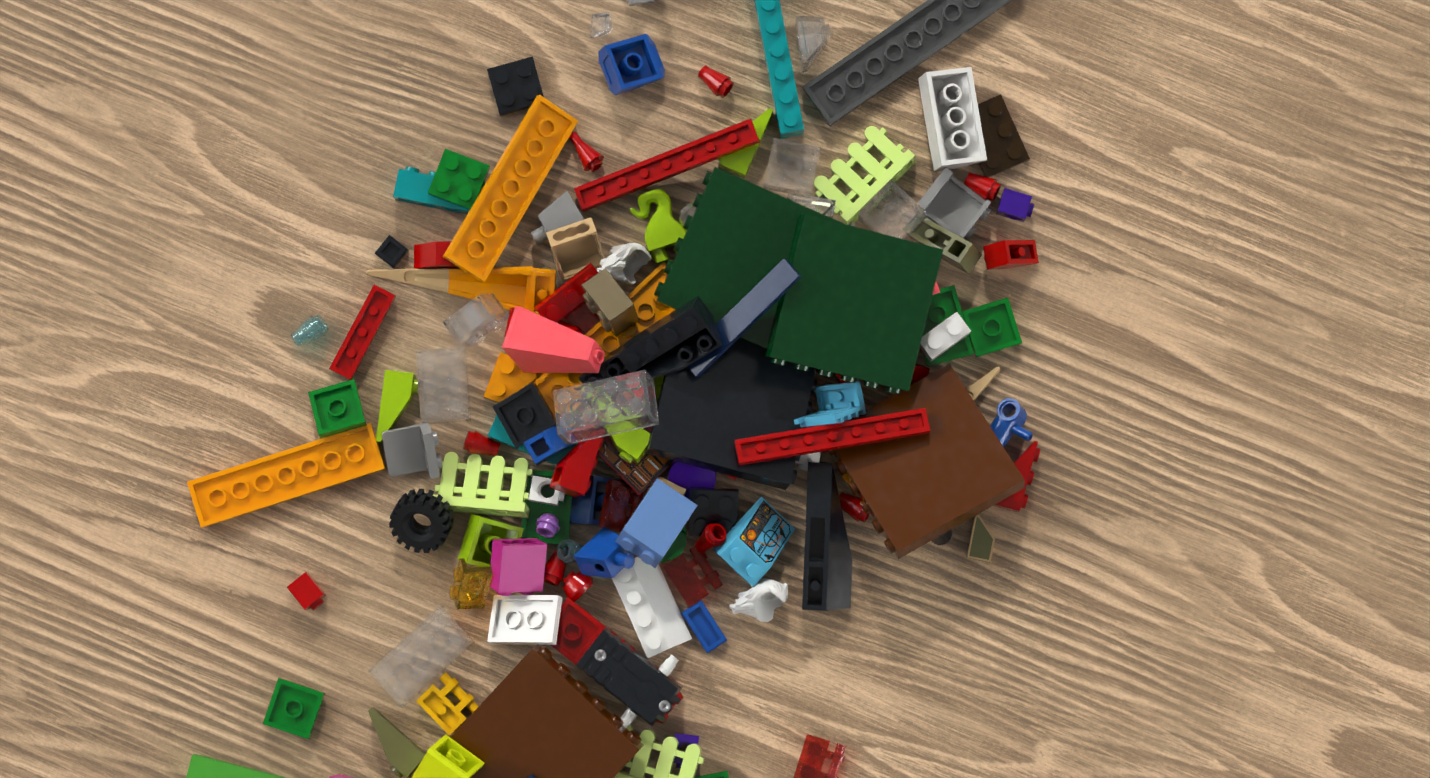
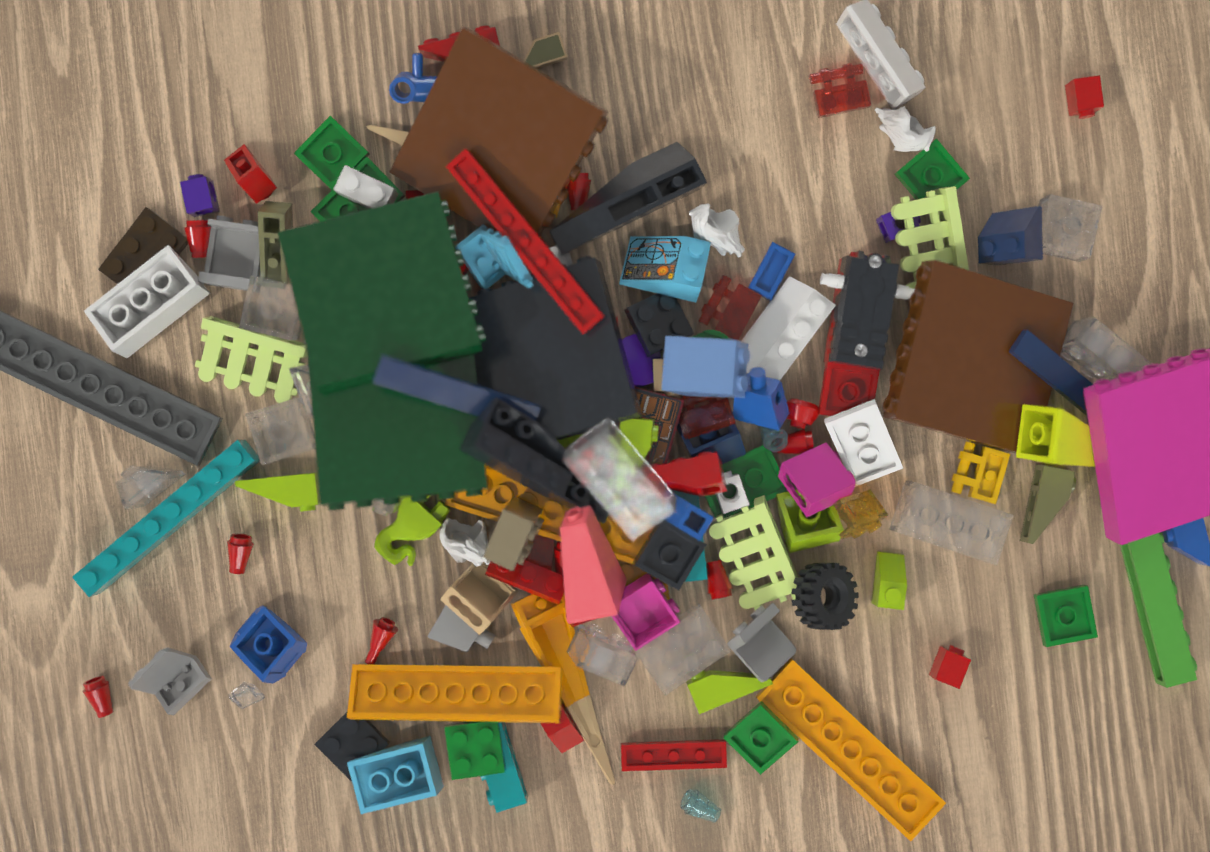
camera: 120 degrees left, 5 degrees up
(391, 251) = (580, 771): black tile -> none
(403, 581) = (889, 581): none -> lime slope
(472, 107) = (396, 775): none -> medium azure slope
(490, 372) = (646, 611): none -> dark pink piece
(547, 525) = (761, 472): medium lavender plate -> none
(667, 165) = (346, 553): red plate -> none
(712, 536) = (685, 308): red cone -> none

